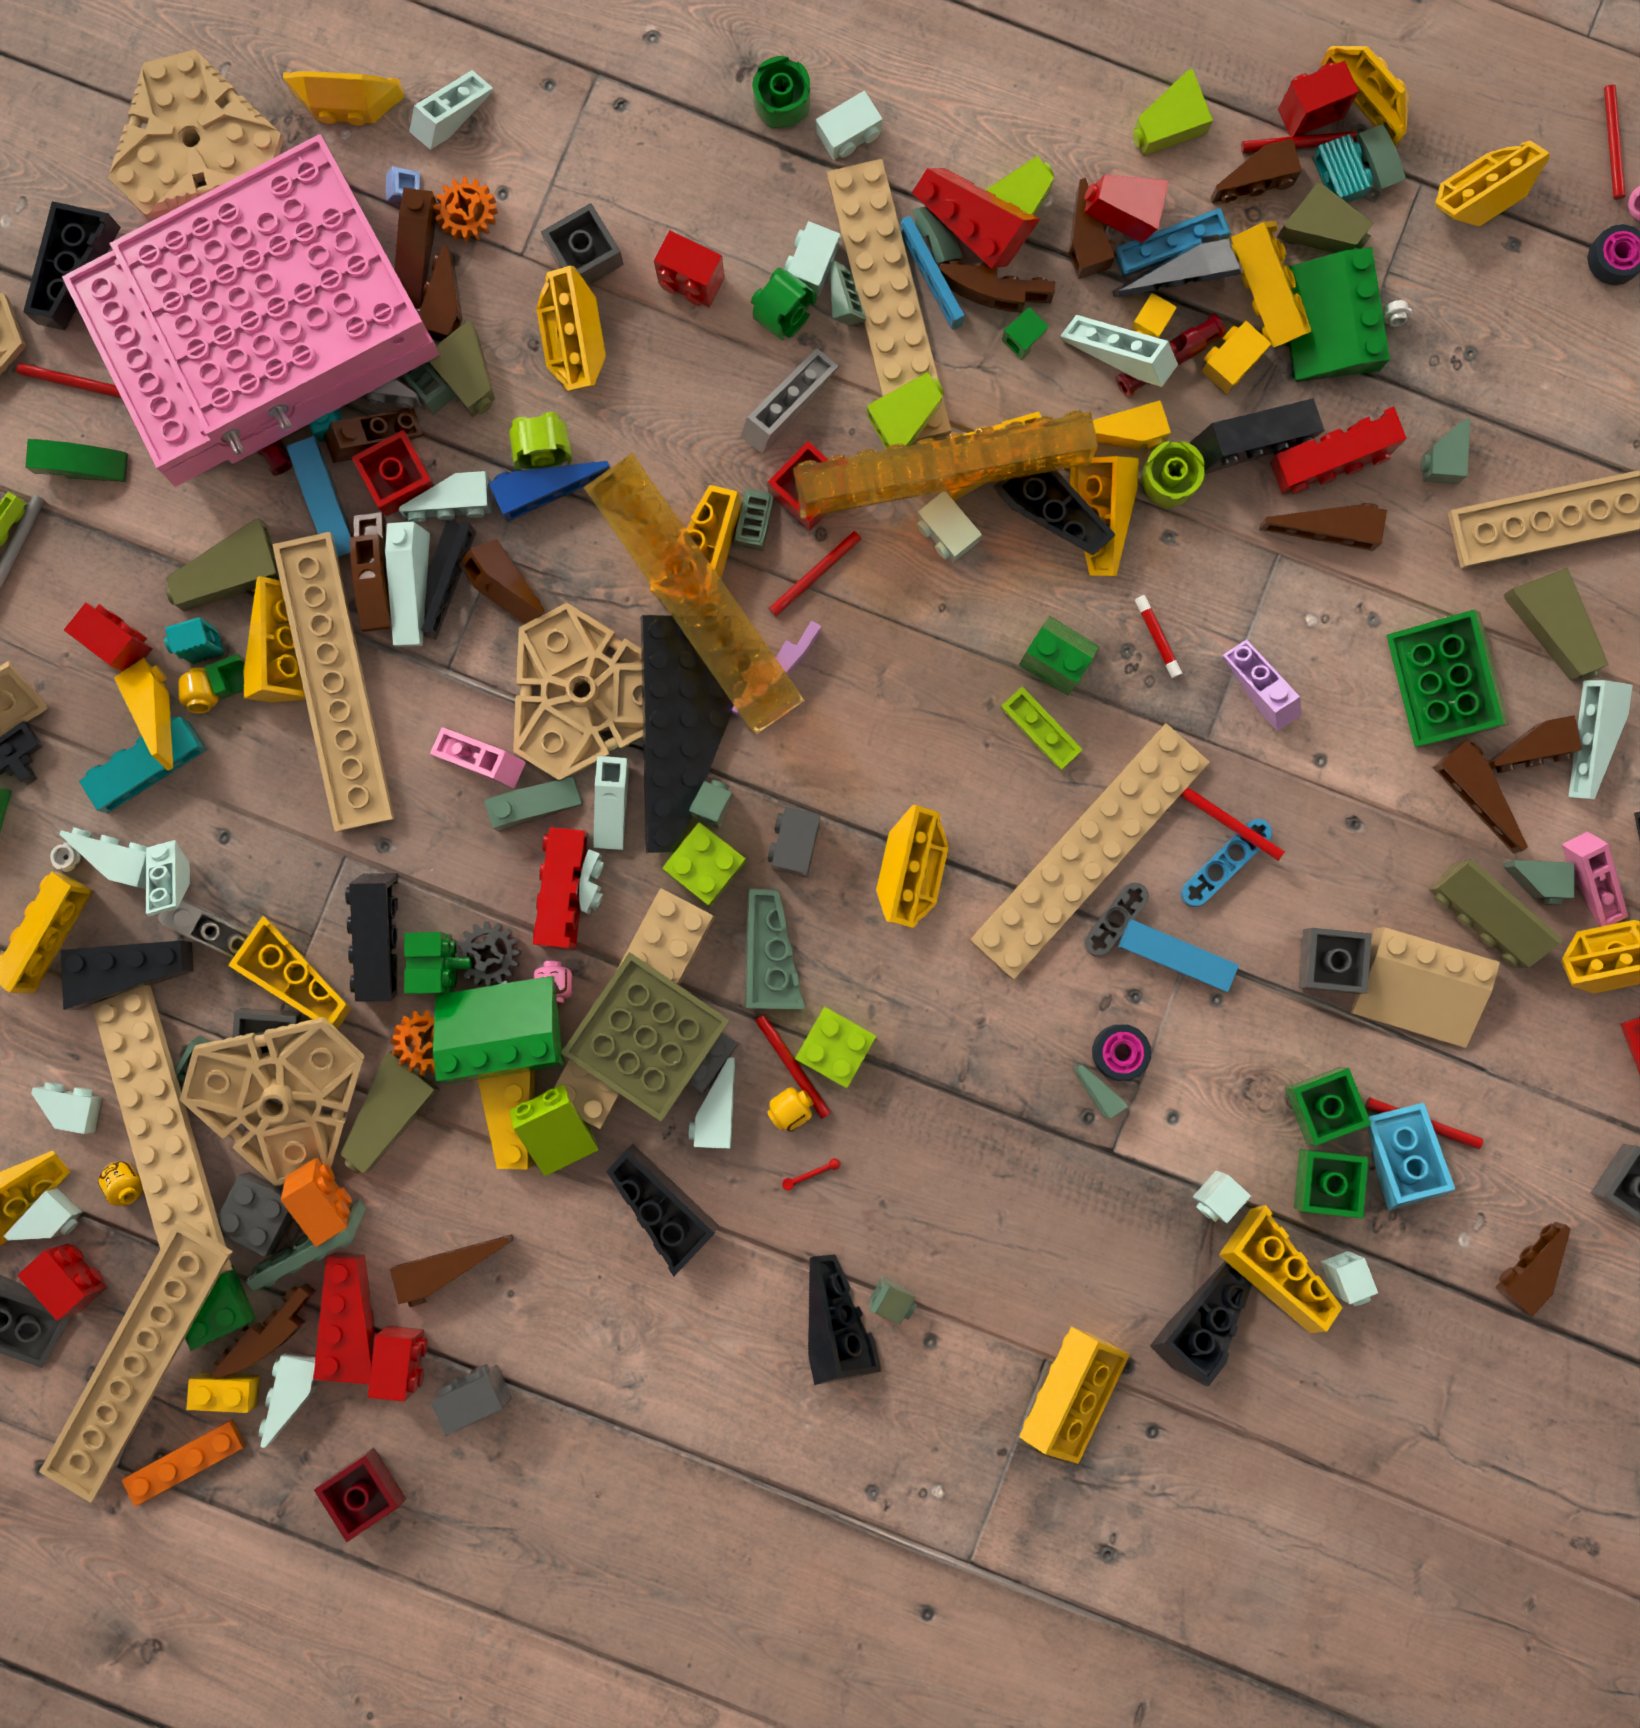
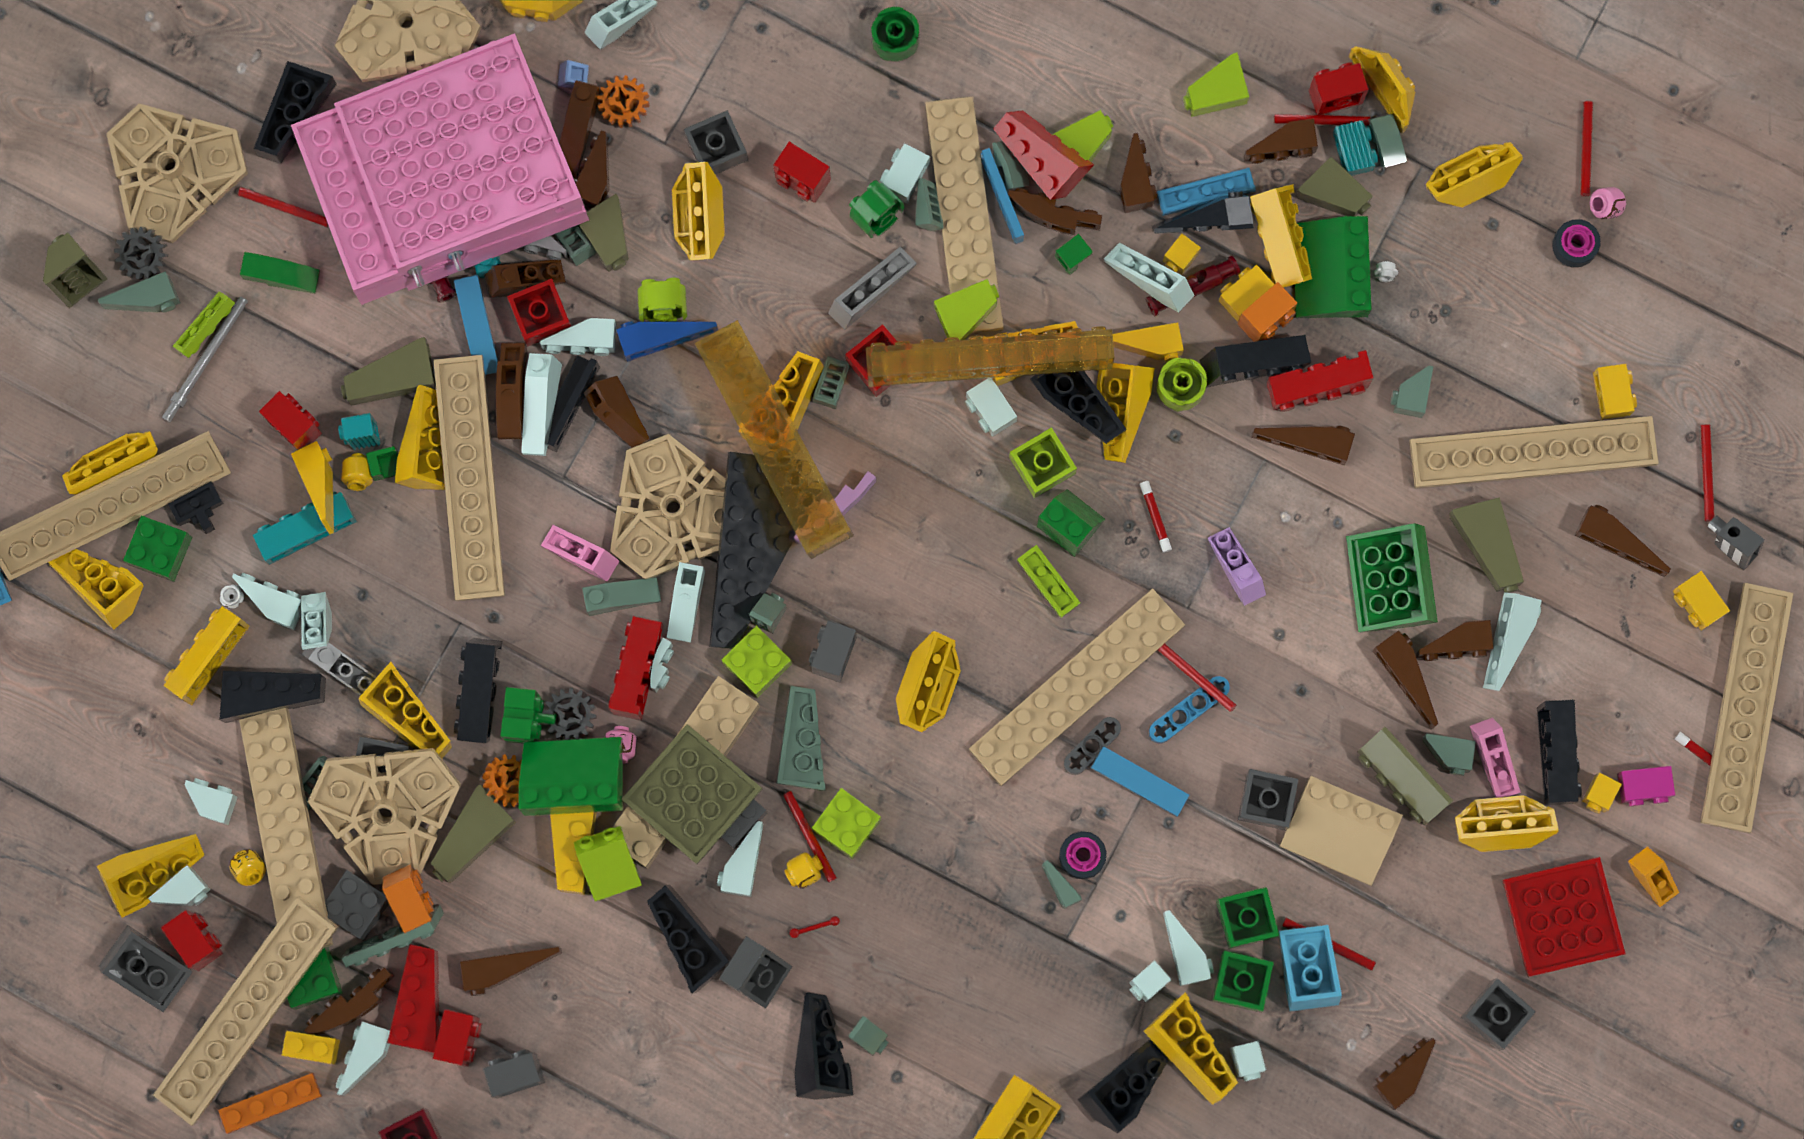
camera: 10 degrees right, 5 degrees down
(747, 1241) = (756, 972): none -> dark grey brick
(815, 573) = (876, 432): red bar -> none
(849, 126) = (948, 67): light aqua brick -> none
(1018, 586) = (1042, 462): none -> lime brick
(1127, 204) = (1170, 158): slope -> none
(1262, 1162) = (1187, 955): none -> light aqua slope
(1267, 377) = (1268, 313): none -> orange brick

